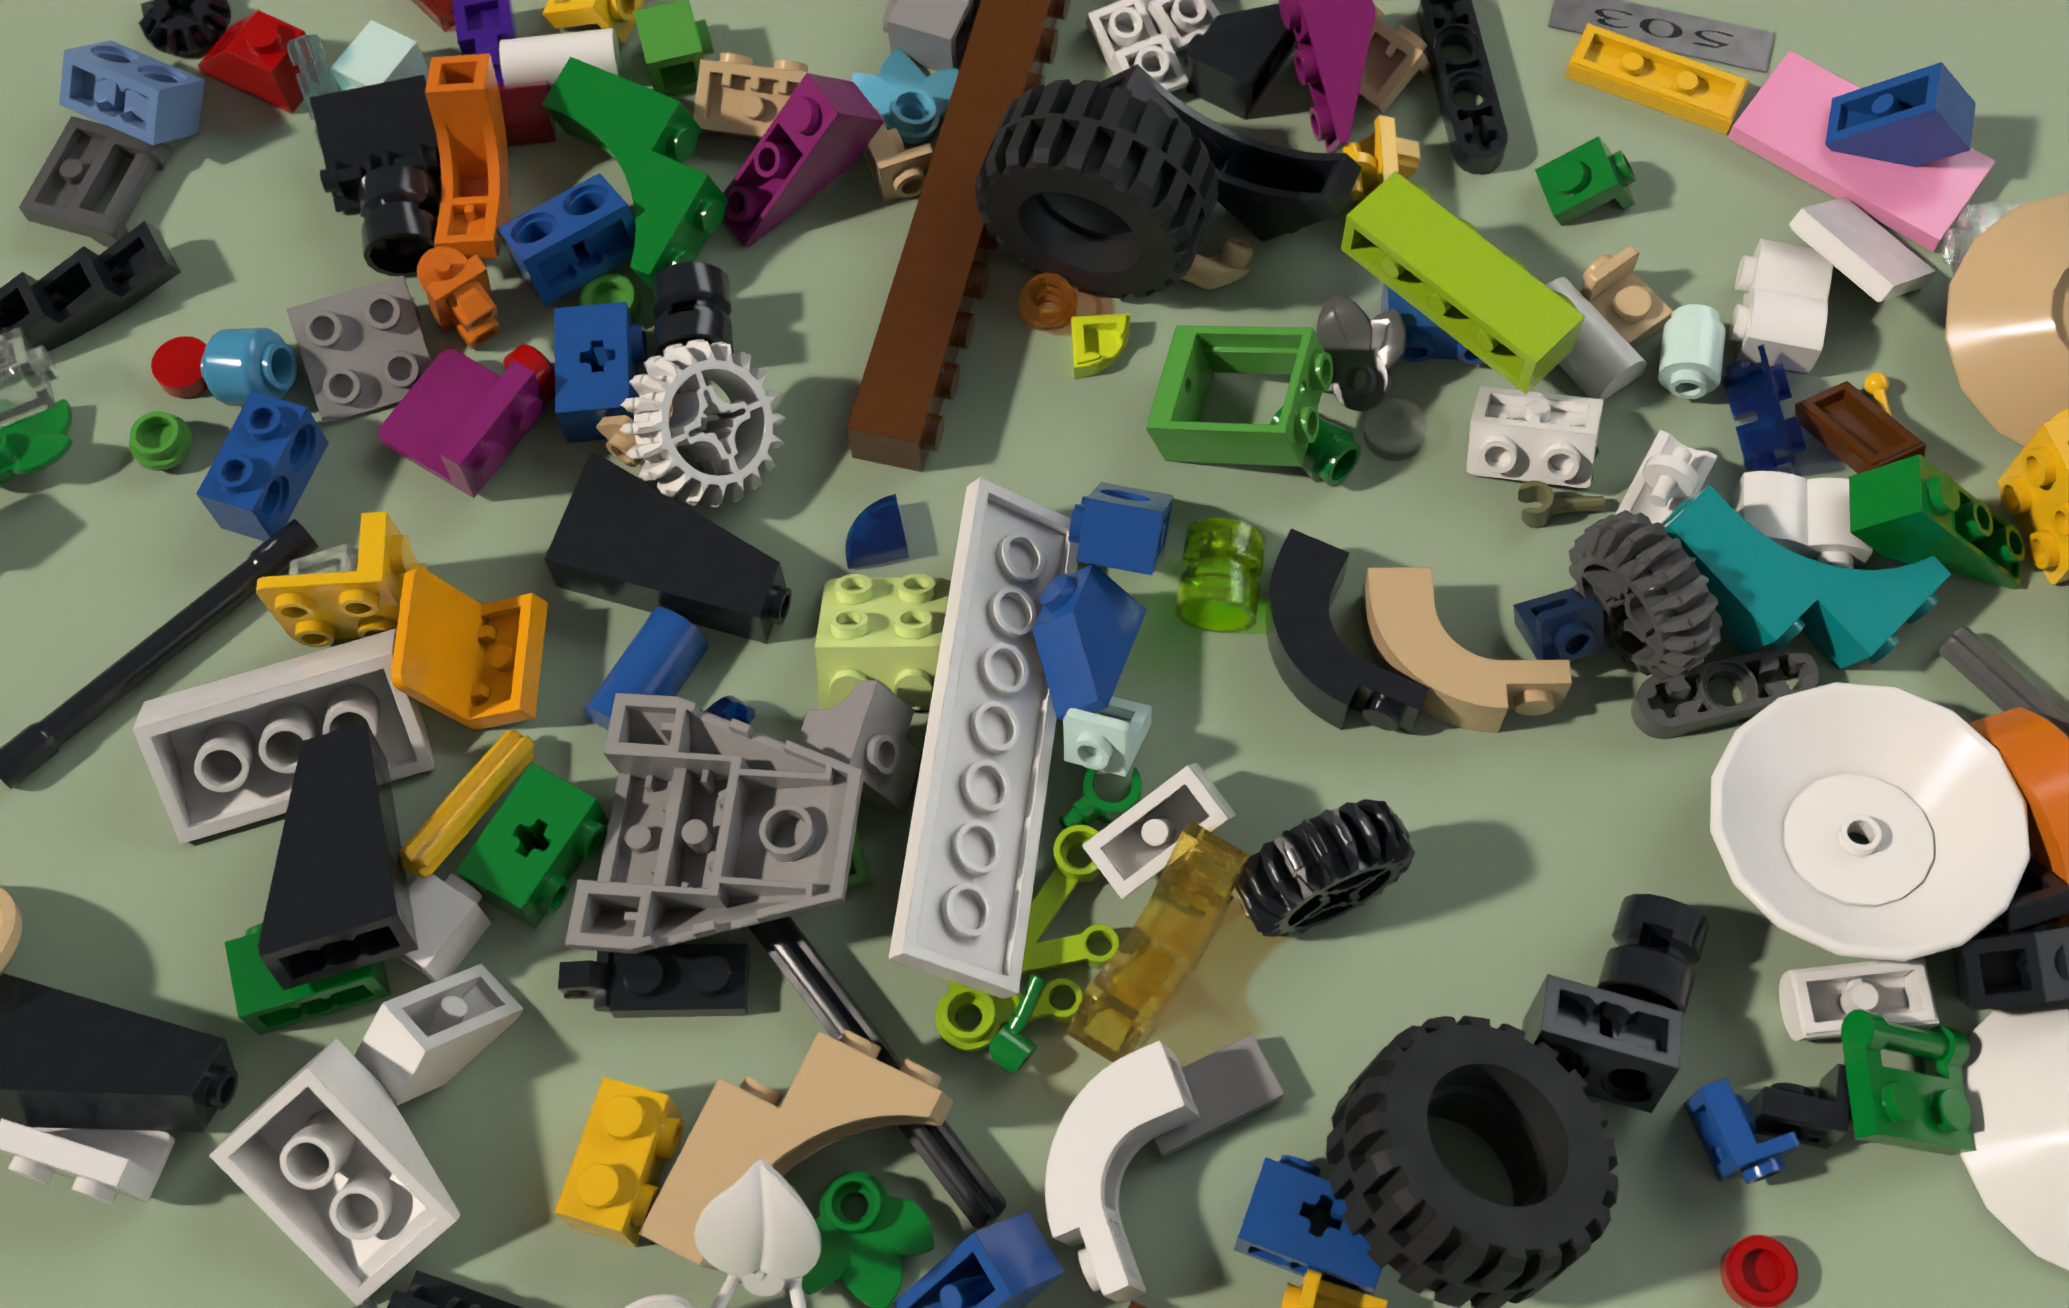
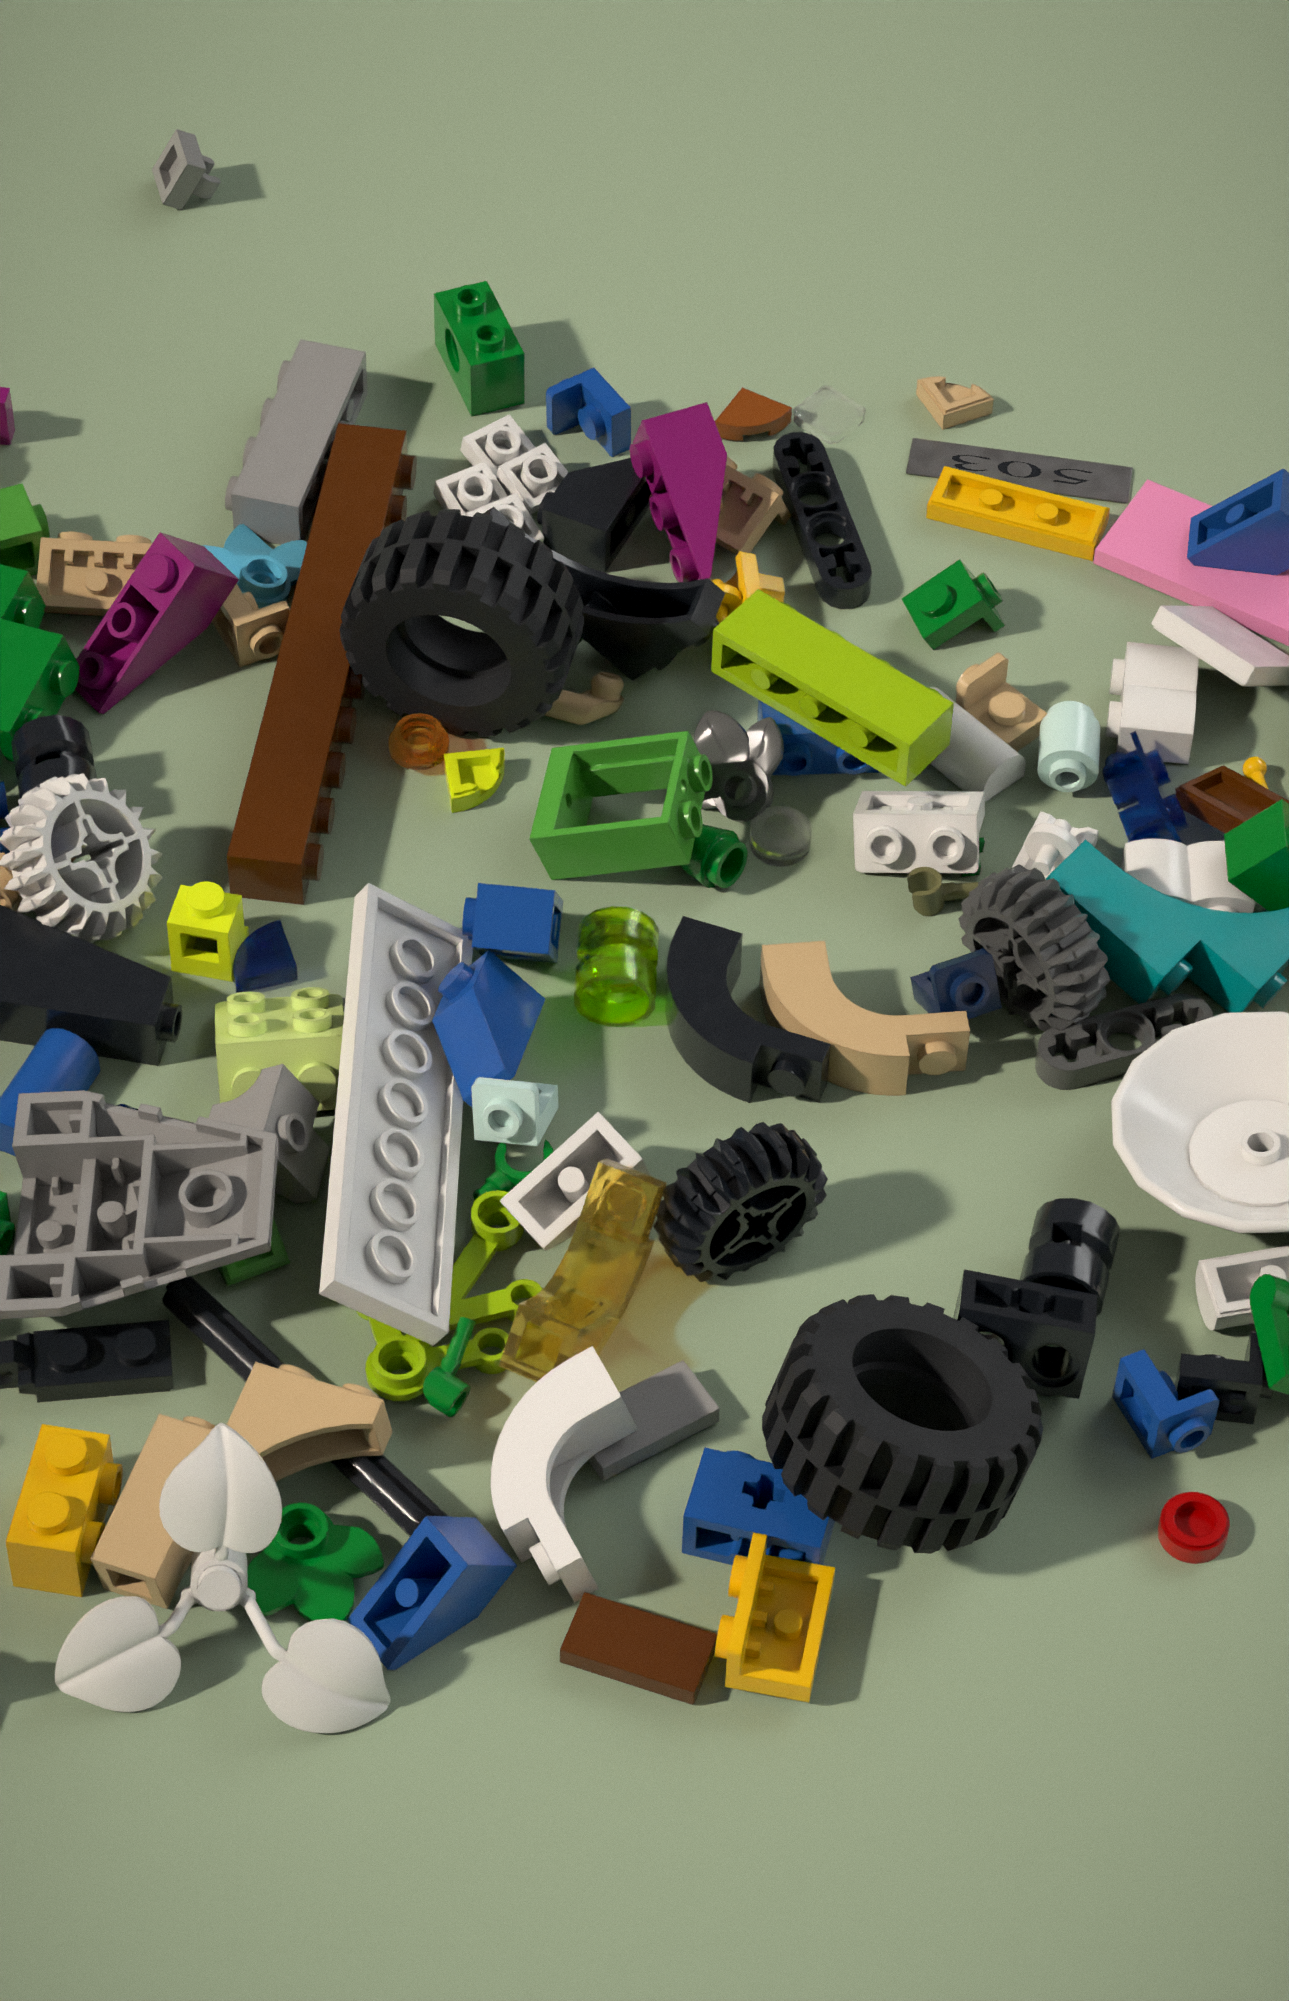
camera: 10 degrees left, 15 degrees down
(822, 494) = (206, 914): none -> neon yellow brick

